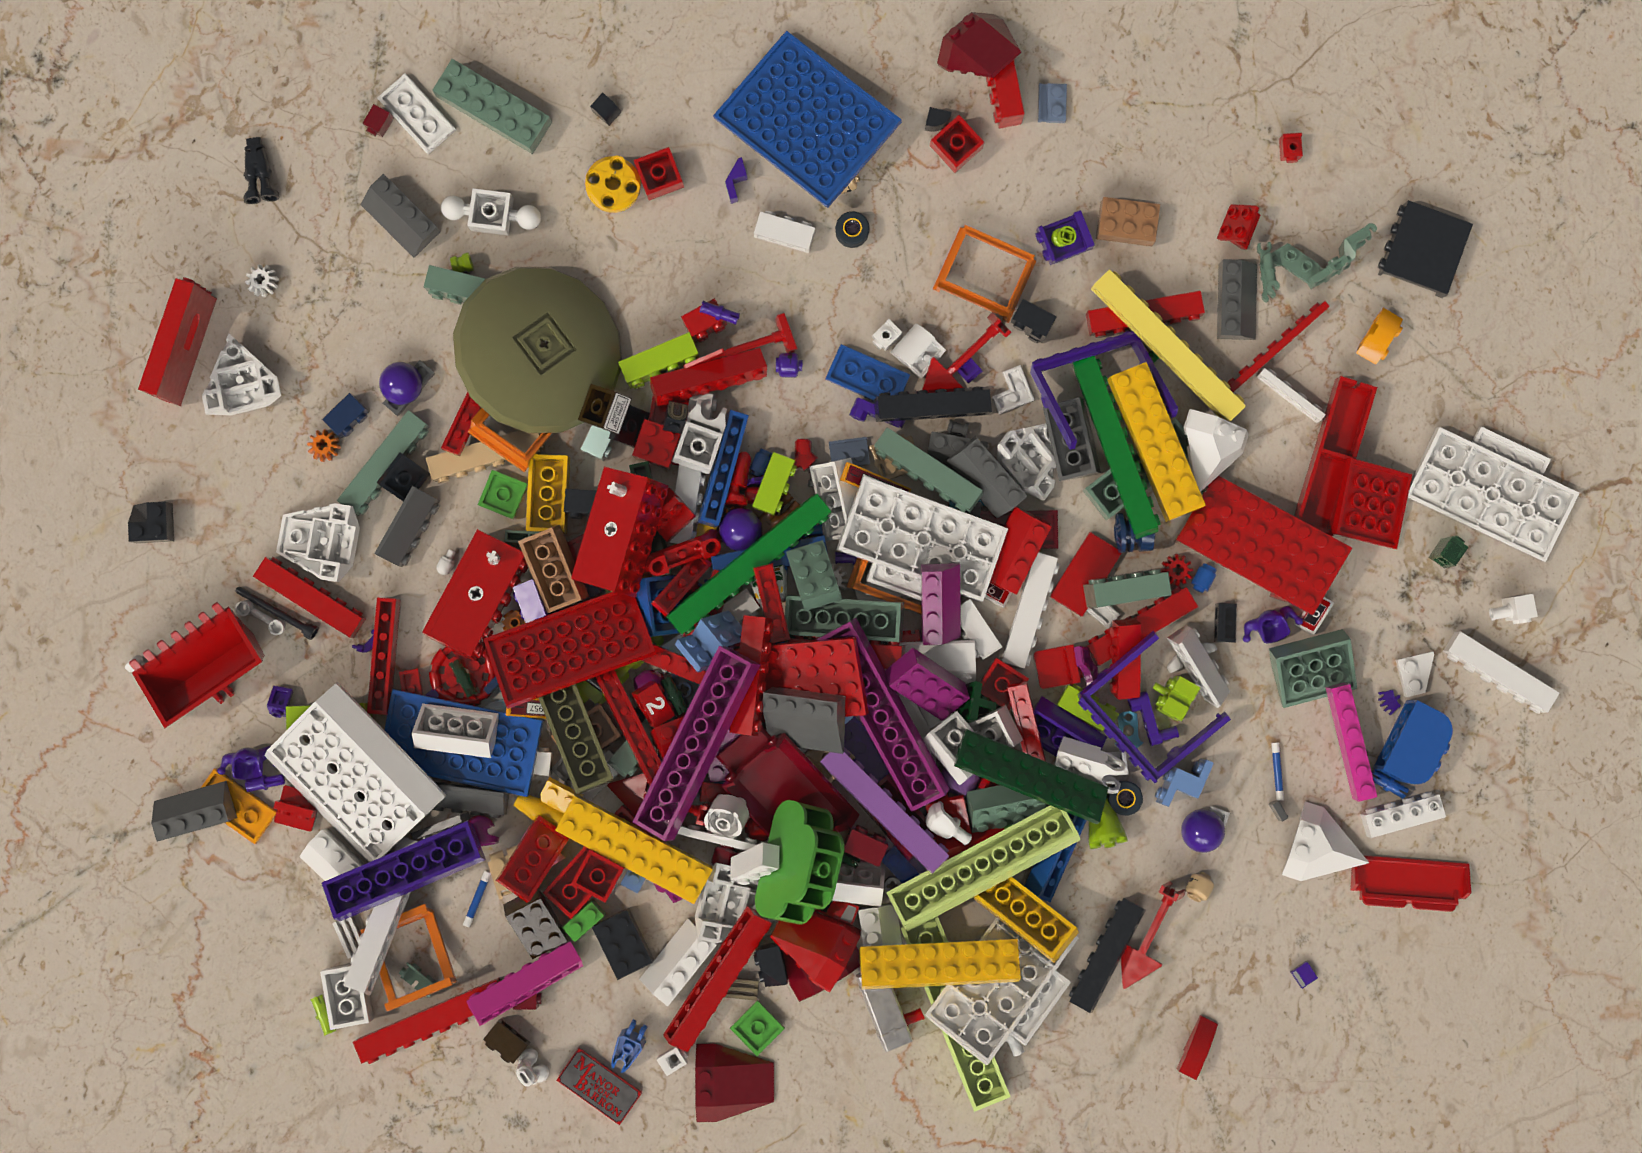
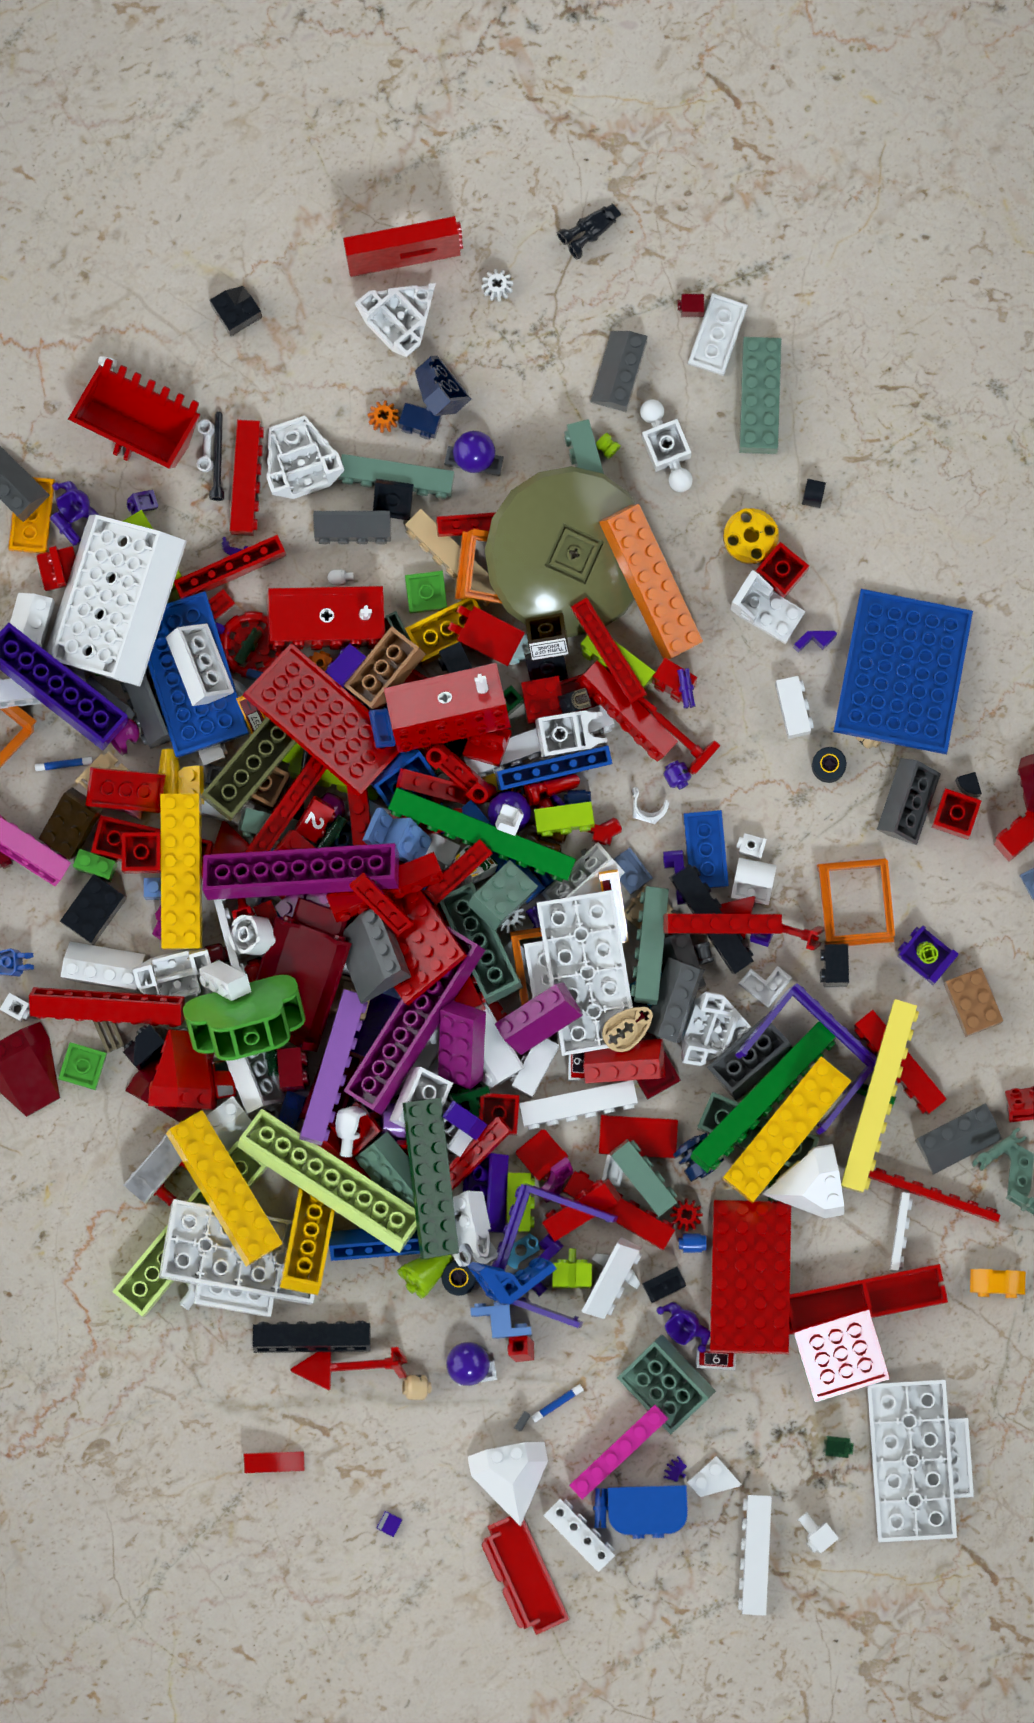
camera: 65 degrees right, 5 degrees down
(326, 381) = (440, 388): none -> dark blue brick
(572, 460) = (487, 634): none -> red tile
(605, 291) = (650, 581): none -> orange brick
(605, 599) = (381, 728): none -> blue tile
(647, 362) = (608, 650): none -> red tile
(685, 207) = (766, 609): none -> white bracket
(750, 532) = (509, 819): none -> white panel
(766, 688) = (380, 903): none -> red plate
(810, 411) = (648, 817): none -> white helmet
(921, 179) = (908, 800): none -> dark grey slope
(945, 397) = (722, 923): none -> red brick
(996, 719) = (464, 1120): none -> dark purple slope
(1001, 532) = (618, 1021): none -> tan piece
(1166, 761) = (508, 1287): none -> blue bracket
(1217, 778) = (521, 1348): none -> red brick

